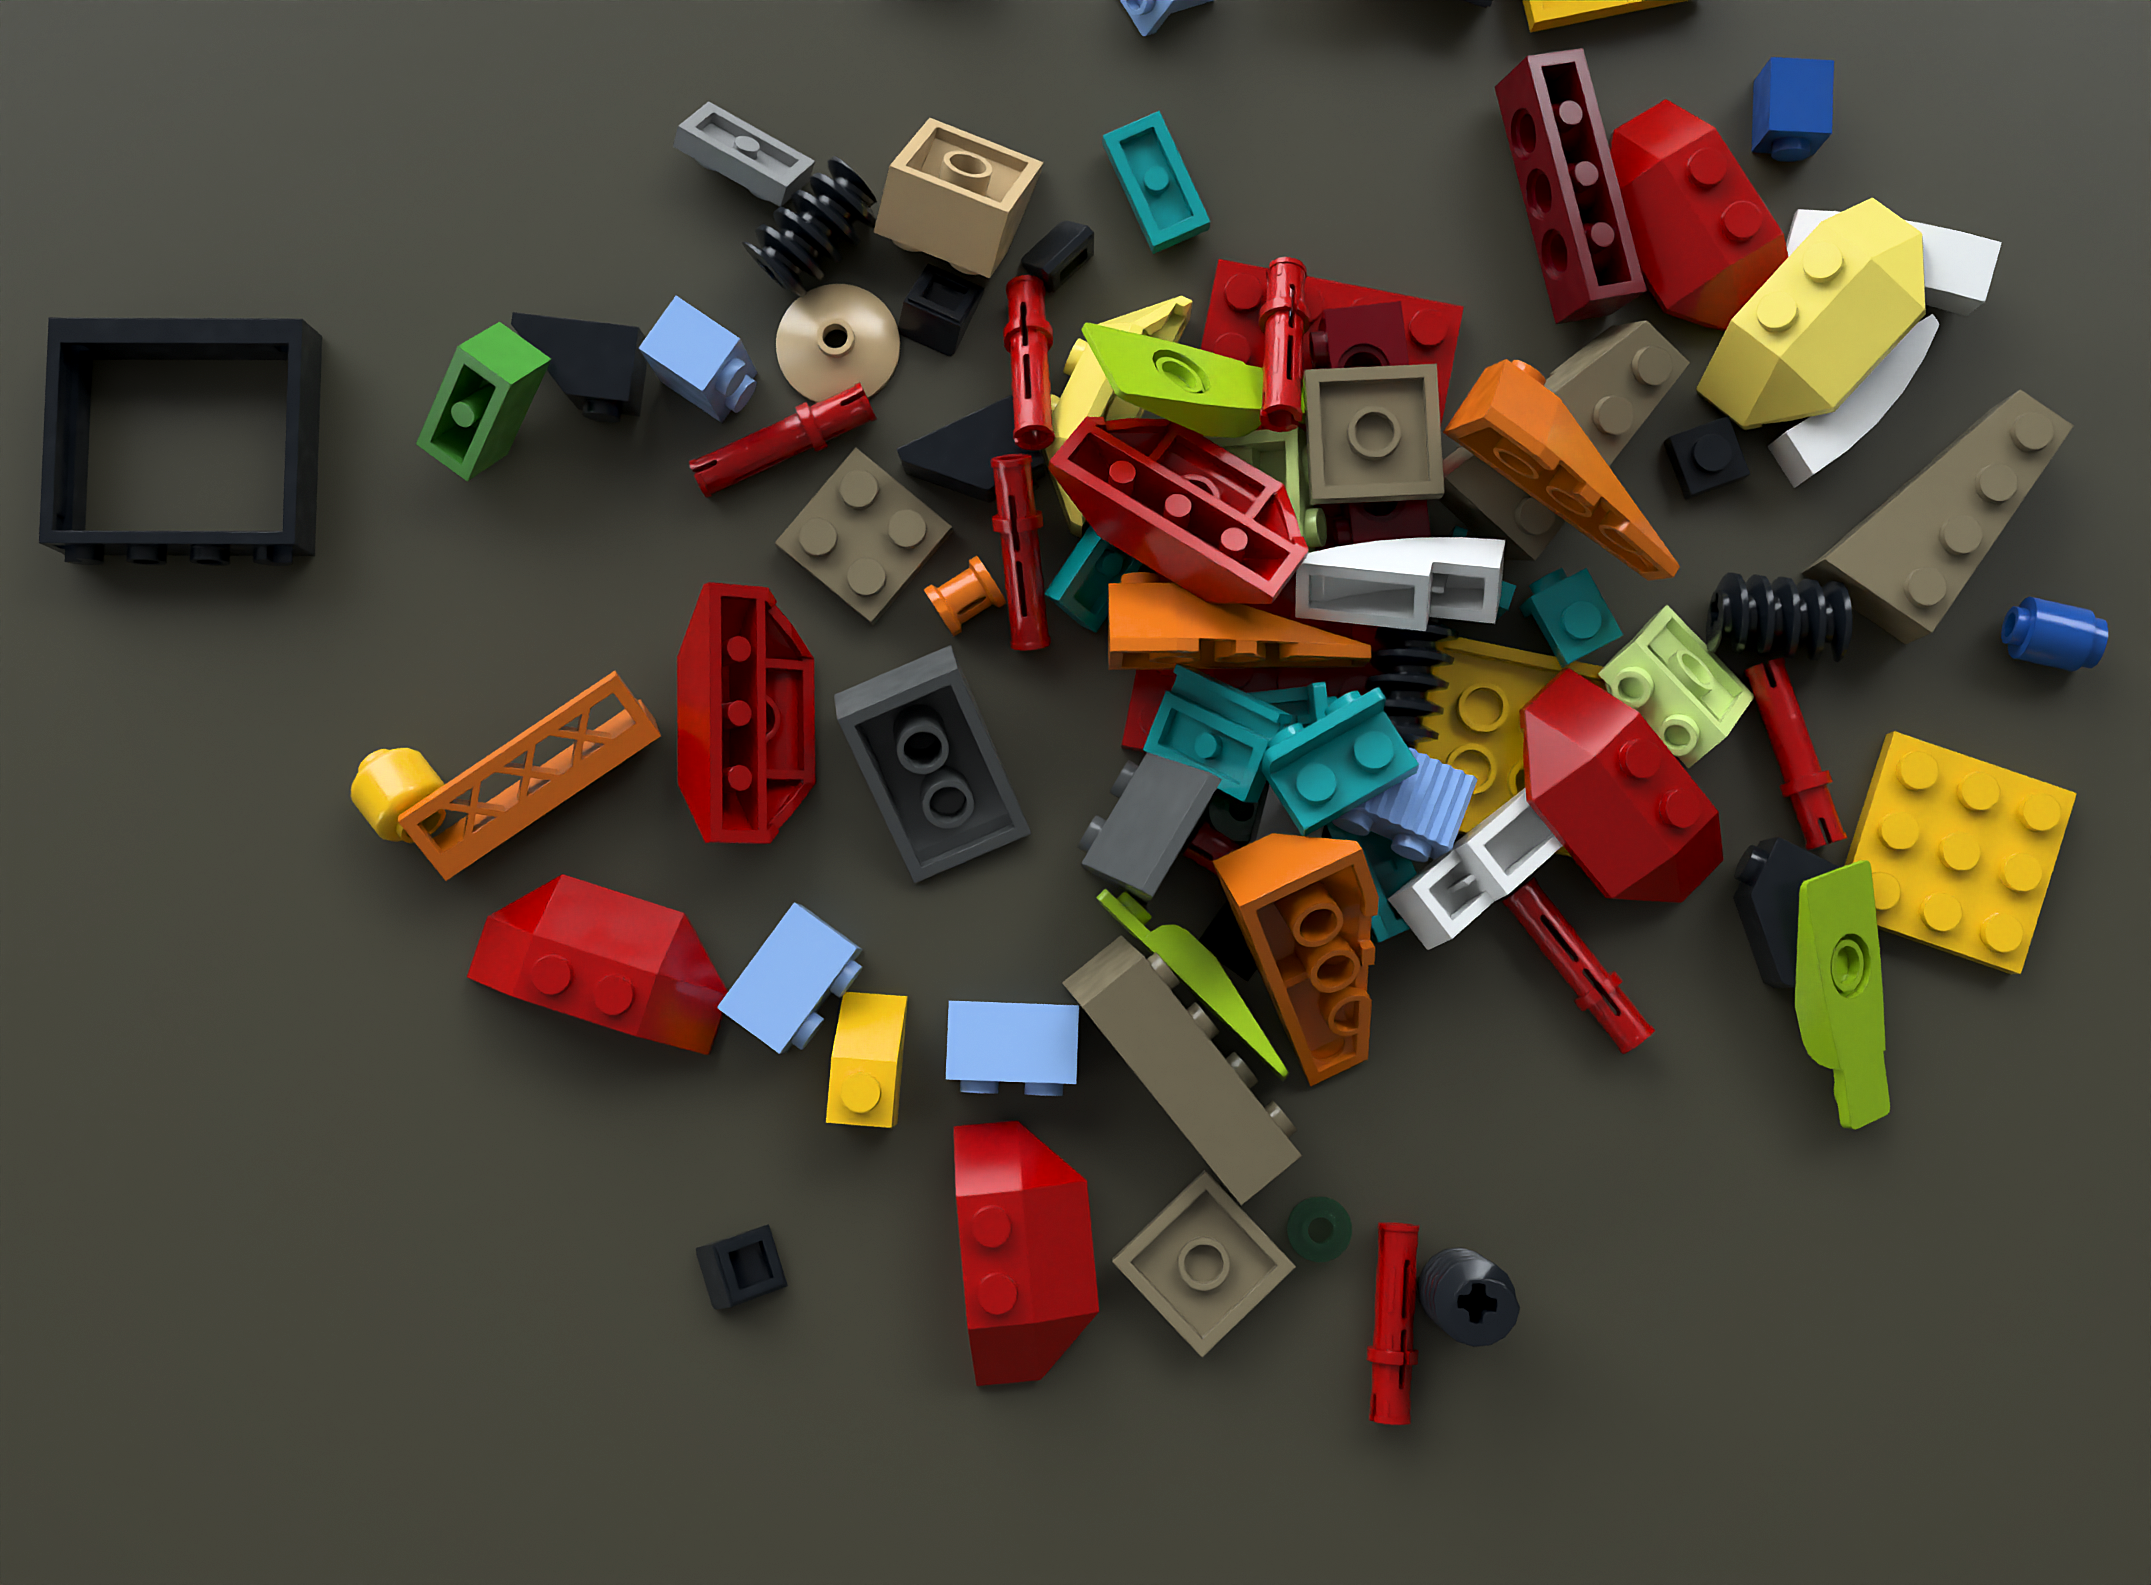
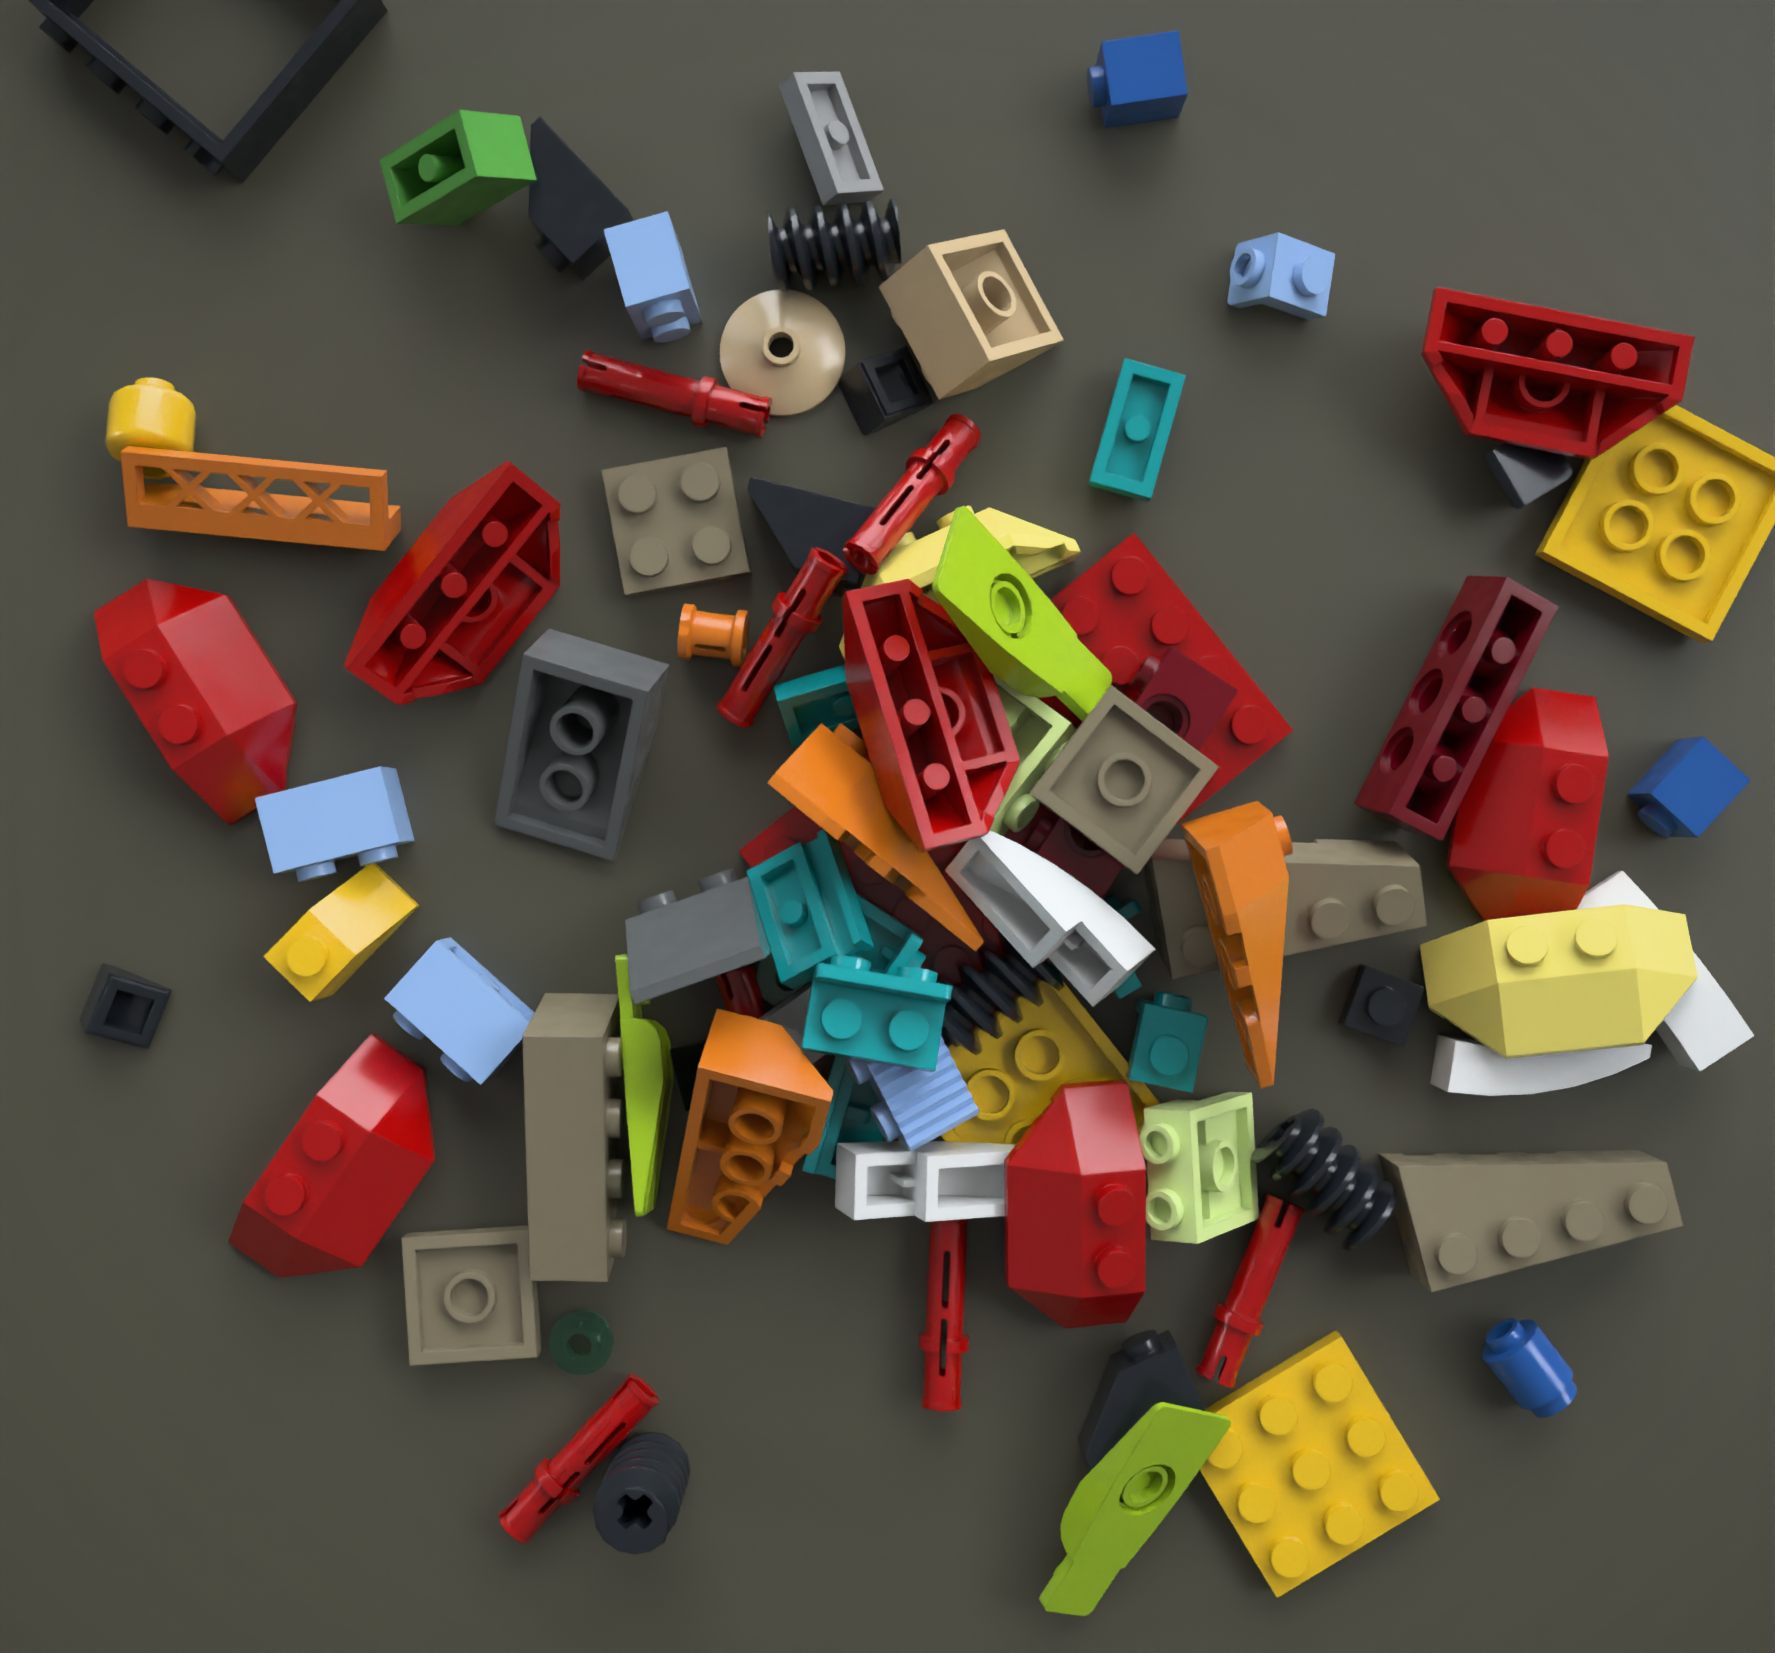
camera: 40 degrees right, 5 degrees up
(1060, 254) = (1013, 424): black slope -> none
(1284, 323) = (1134, 630): red pin -> none

